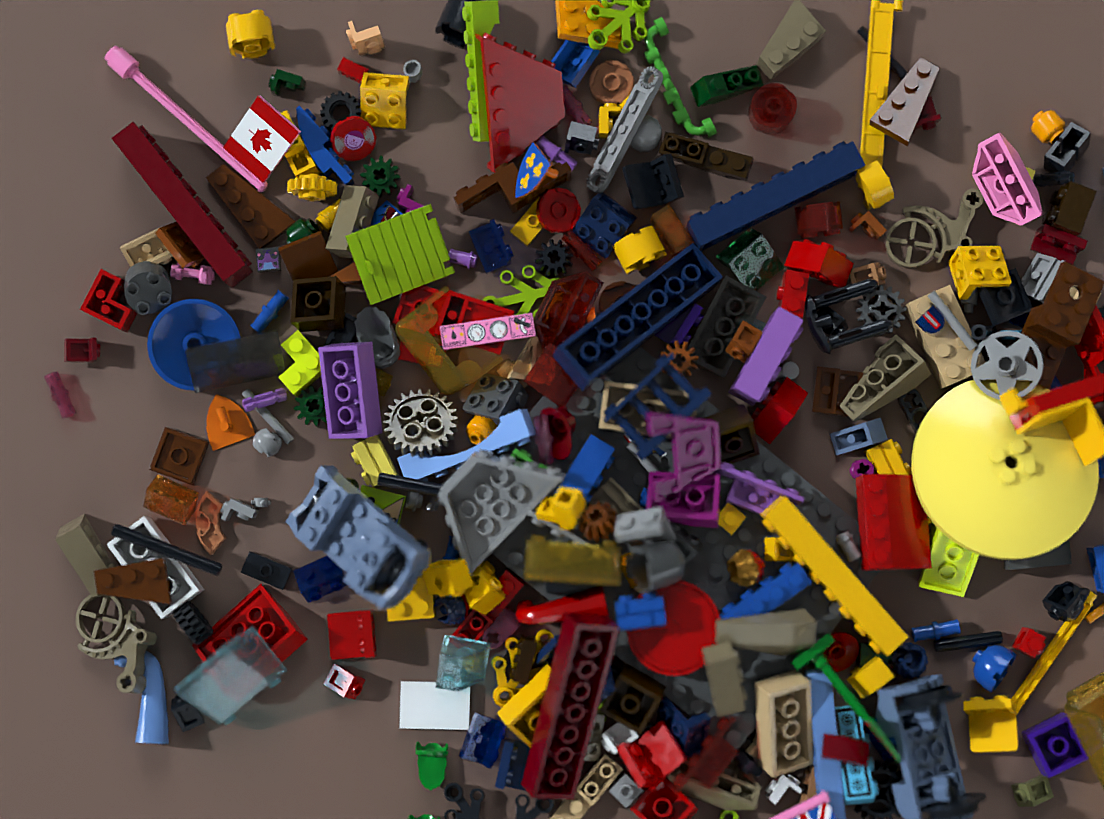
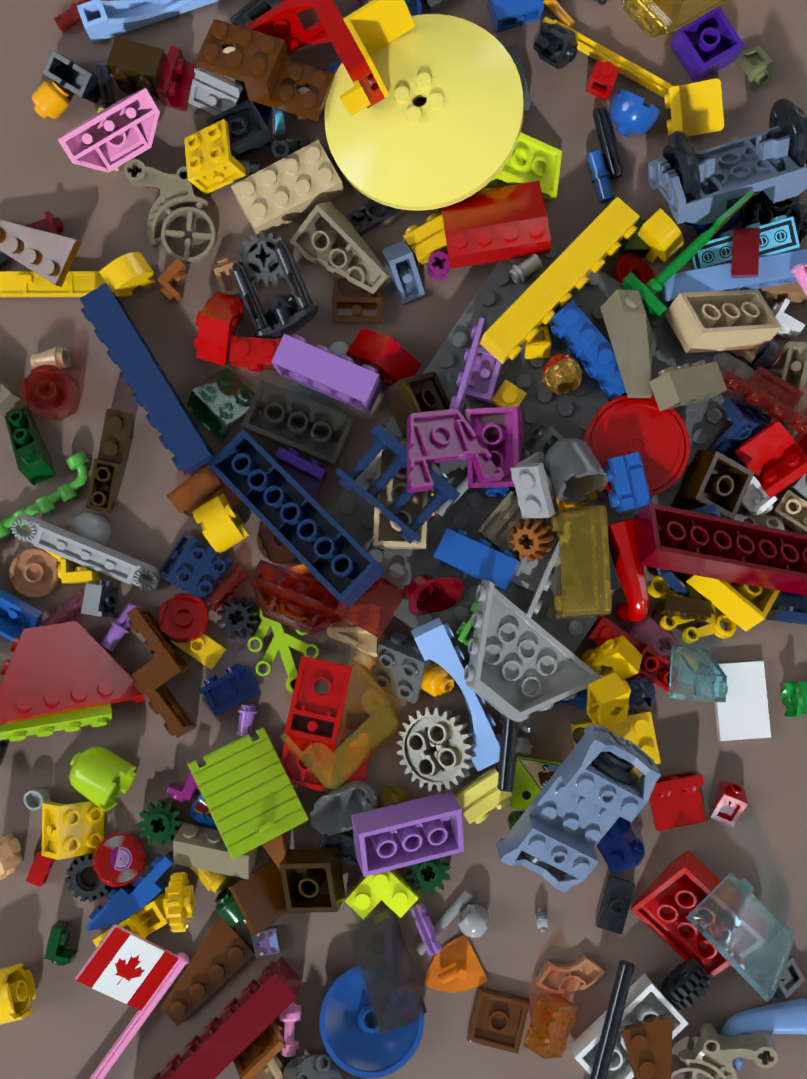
camera: 95 degrees left, 0 degrees up
(243, 510) = (550, 942): light grey bracket -> none
(269, 311) = (325, 933): blue pin -> none
(427, 128) = (101, 776): none -> lime cylinder
(483, 740) = (774, 644): clear blue bracket -> none
(487, 331) = (328, 684): tile -> none
(533, 171) = (140, 650): blue shield -> none
(543, 439) = (443, 608): clear pink pin -> none
(563, 508) = (522, 578): yellow brick -> none
(653, 182) = (143, 515): black bracket -> none
(686, 364) = (338, 457): dark orange gear -> none
(743, 341) = (313, 398): dark orange bracket -> none
(804, 114) = (56, 356): none -> tan cone
(818, 219) = (169, 331): clear red brick -> none
(909, 660) = (638, 196): dark blue piece -> none
(931, 321) = (272, 200): clear blue tile -> none
(952, 320) = (270, 178): light grey bar -> none
(1006, 364) = (313, 115): light grey wheel -> none

